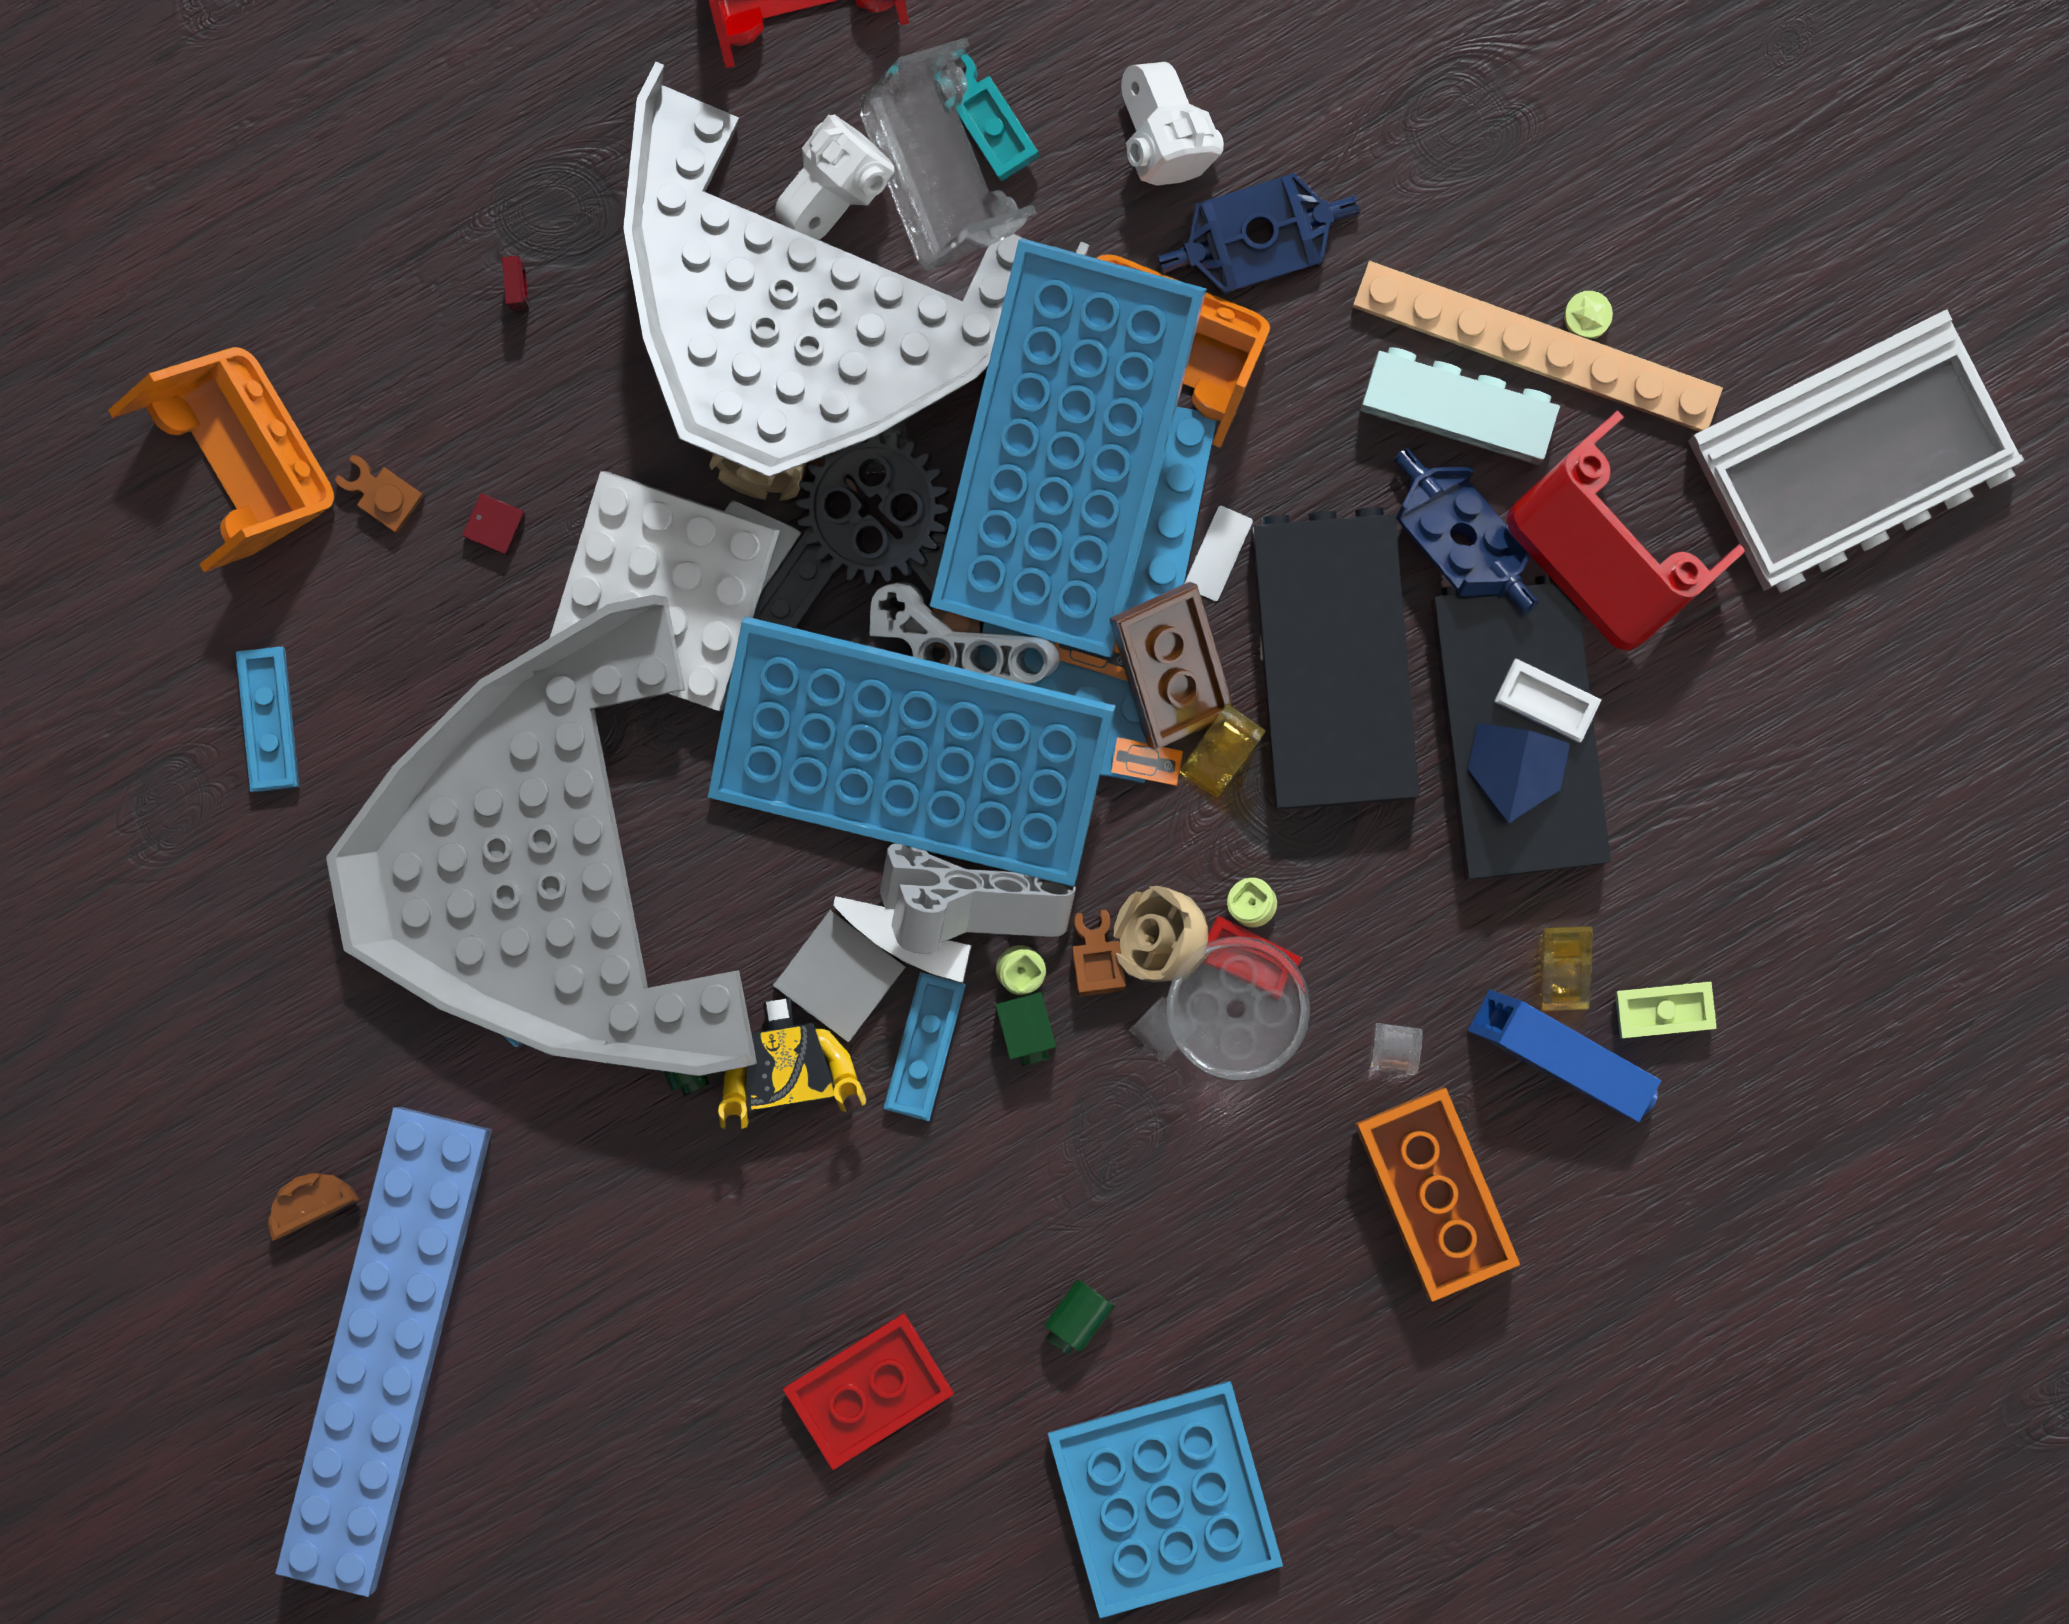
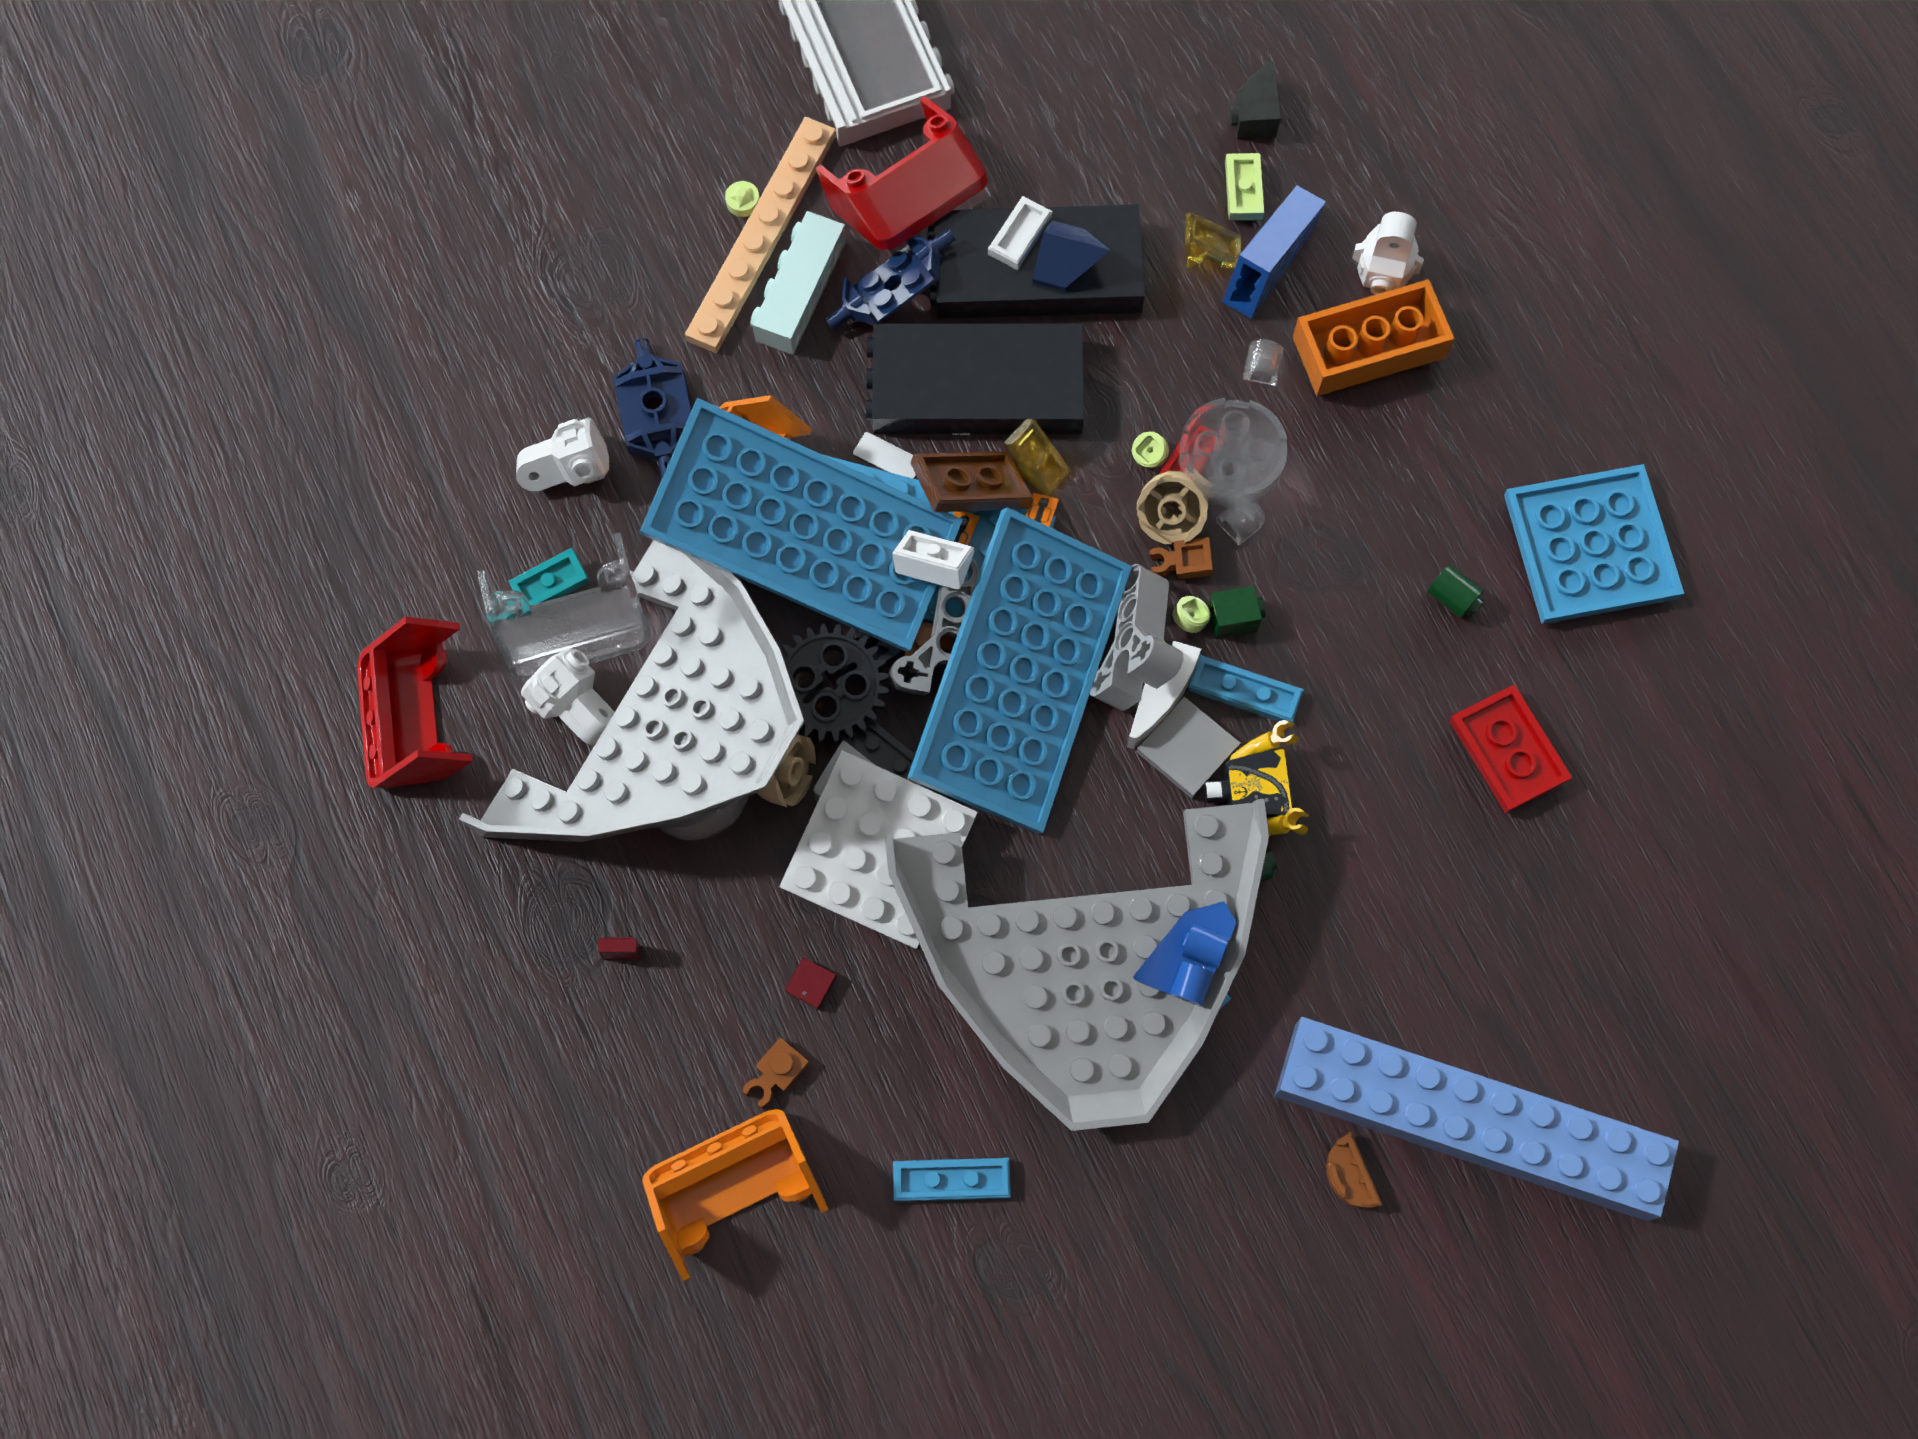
camera: 85 degrees left, 15 degrees down
(550, 988) = (1190, 954): none -> blue panel
(1039, 622) = (932, 559): none -> white slope
(1565, 1212) = (1389, 254): none -> white piece
(1795, 1020) = (1257, 106): none -> pearl dark grey slope

